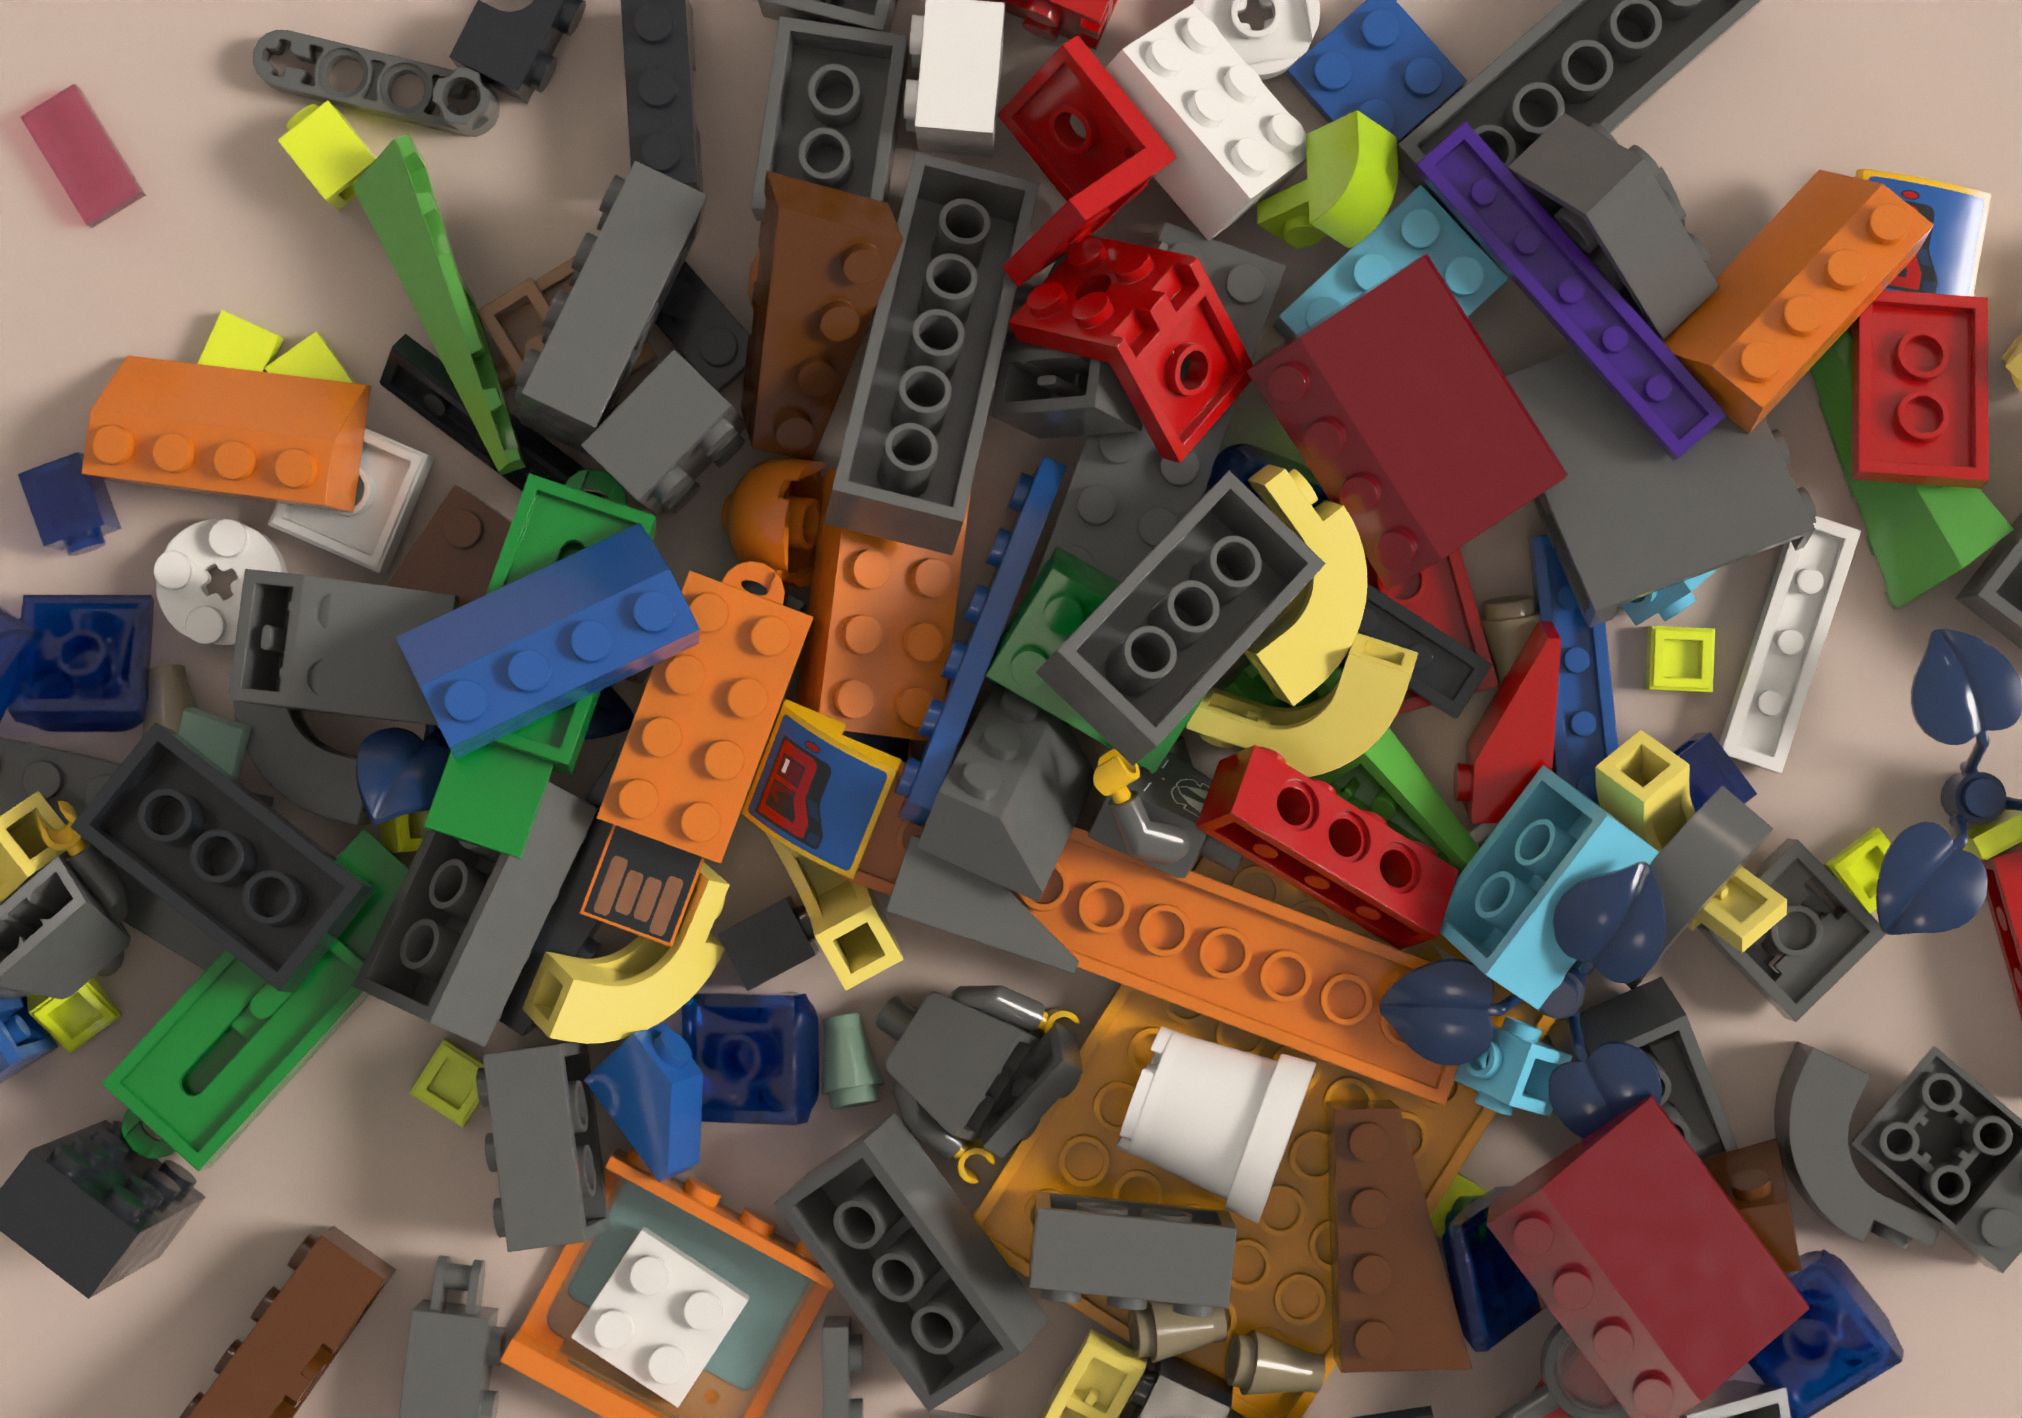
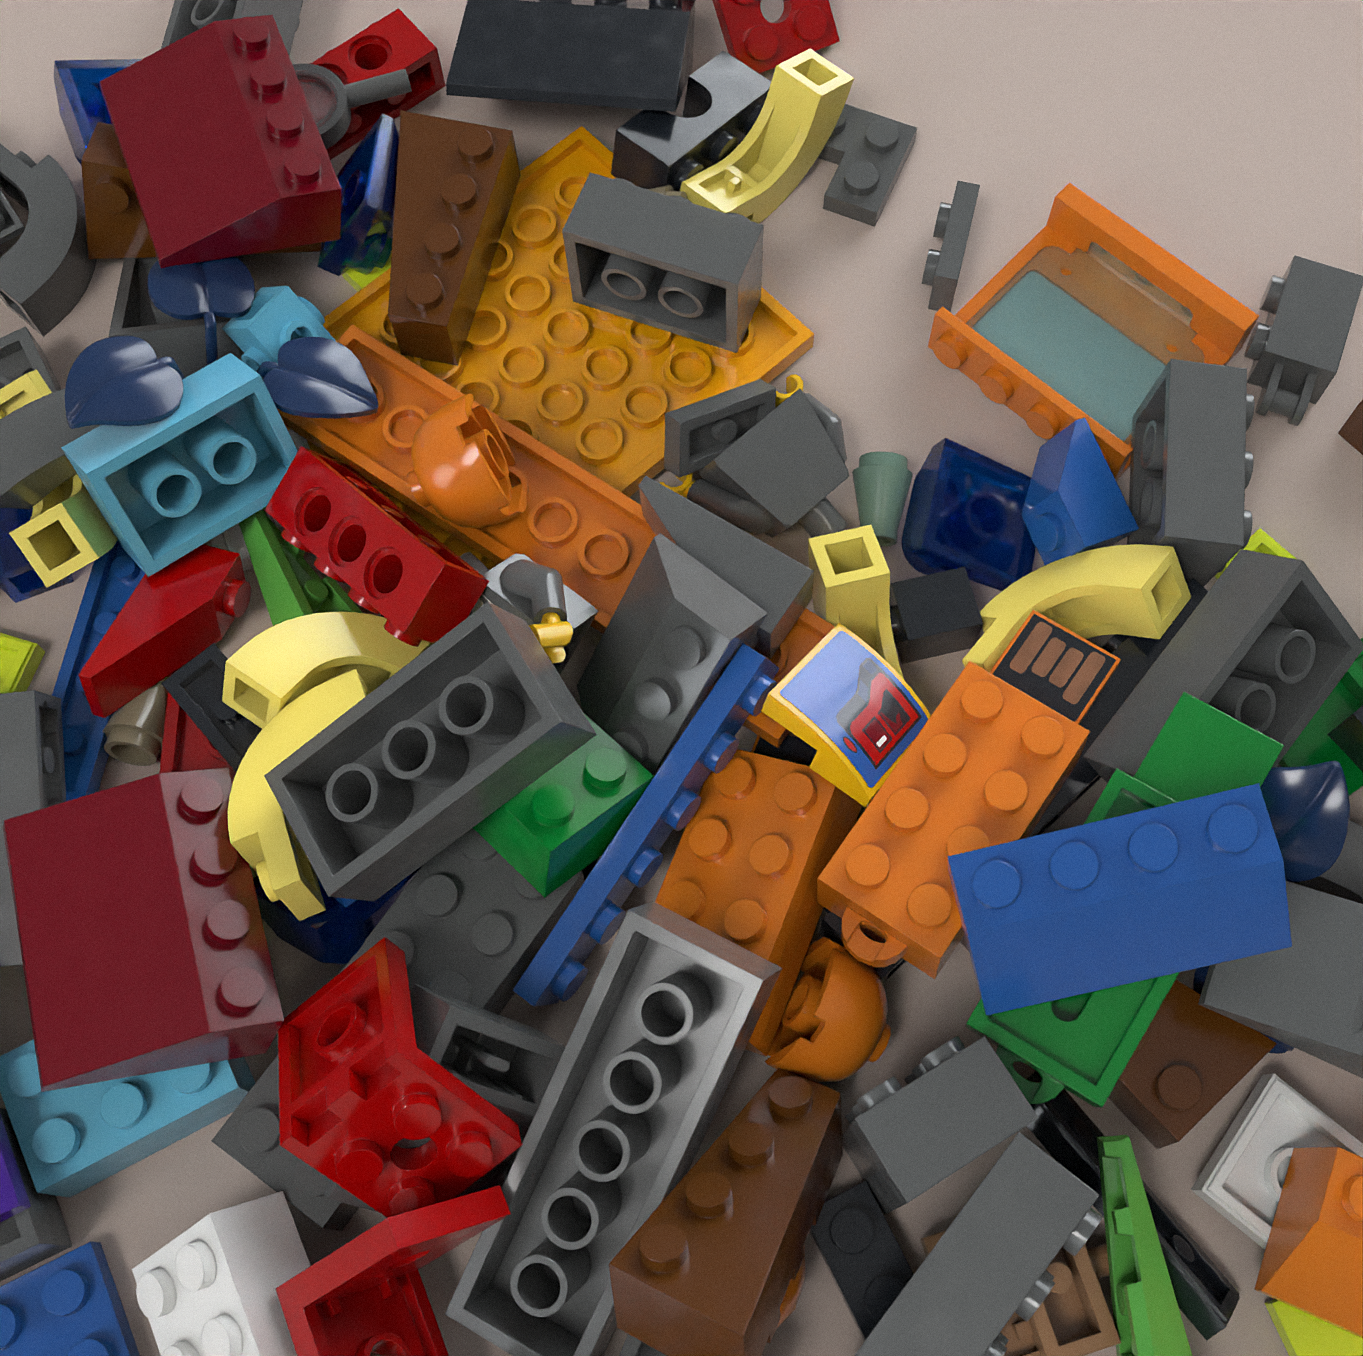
camera: 160 degrees left, 20 degrees down
(660, 1316) = (1100, 334): white plate -> none
(912, 1262) = (865, 312): dark grey brick -> none
(1216, 1116) = (548, 341): white piece -> none
(1260, 945) = (464, 467): none -> orange cylinder
(1271, 1366) = (569, 165): dark tan cone -> none
(1346, 186) = (107, 1212): lime brick -> none

